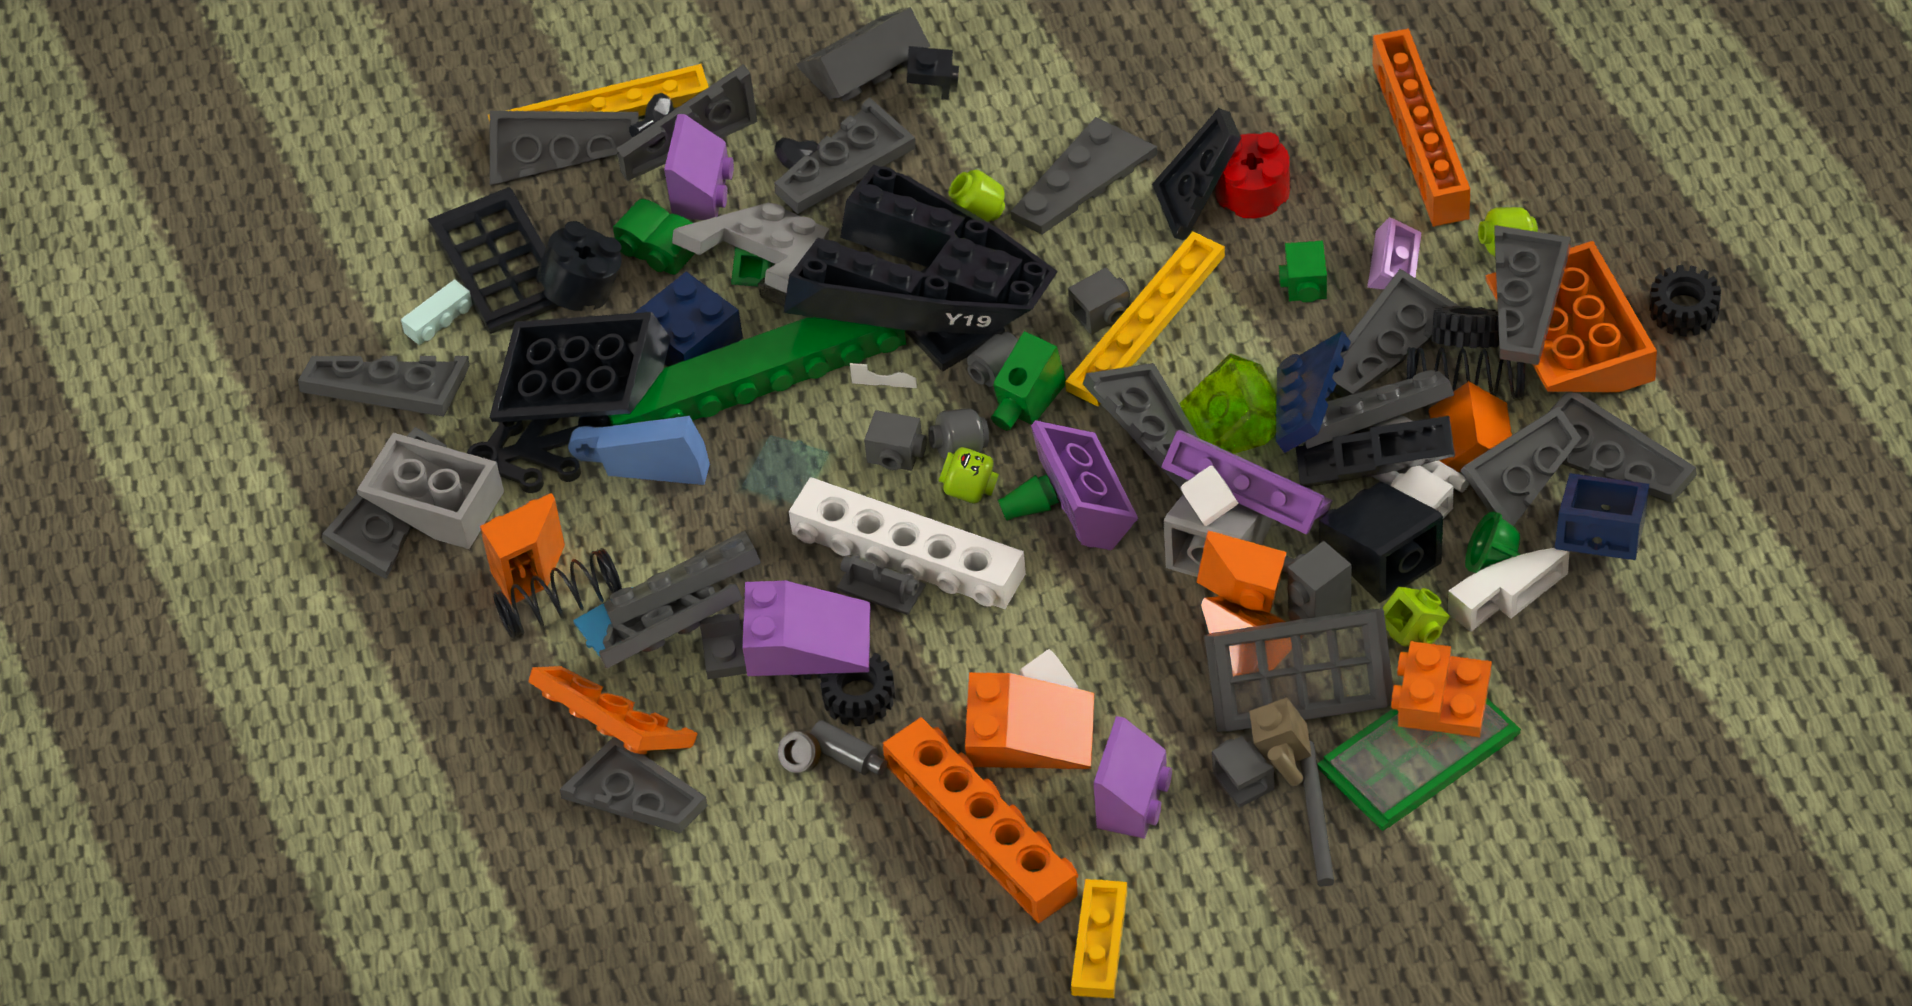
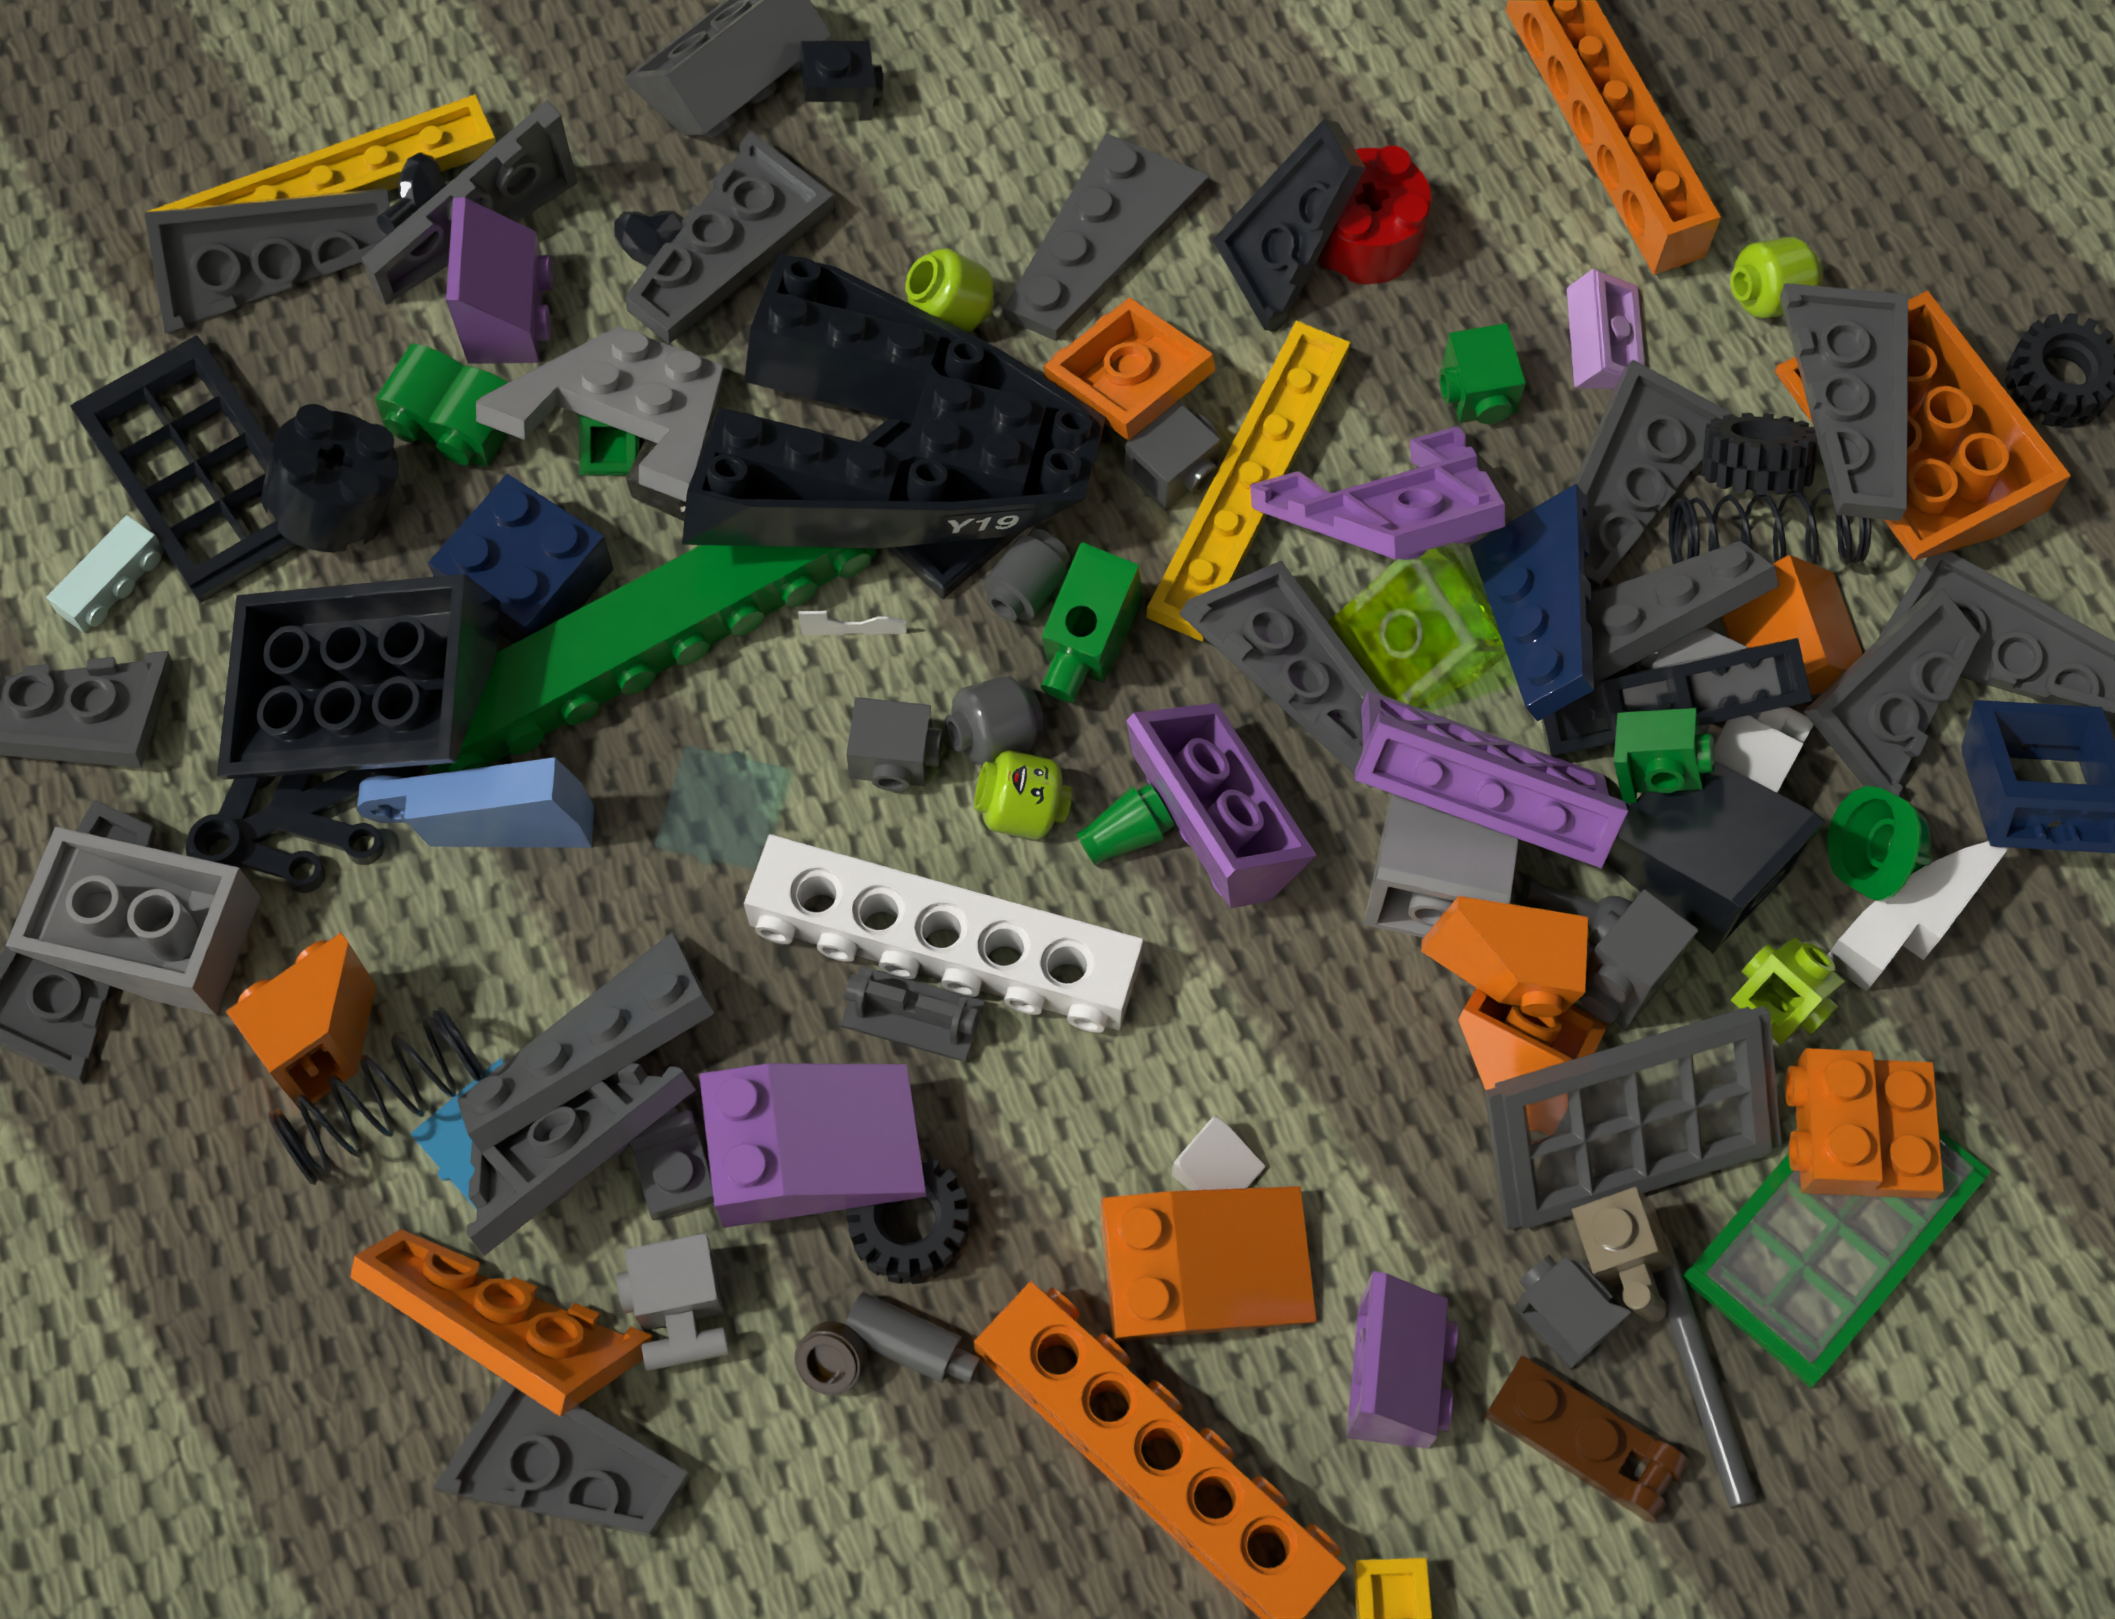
camera: 15 degrees left, 15 degrees up
(713, 711) = (673, 1288): none -> light grey brick
(1080, 246) = (1130, 367): none -> orange plate
(1209, 495) = (1448, 830): white slope -> none
(1224, 335) = (1399, 513): none -> medium lavender wing
(1238, 839) = (1585, 1438): none -> reddish brown plate
(1356, 477) = (1661, 752): none -> green brick

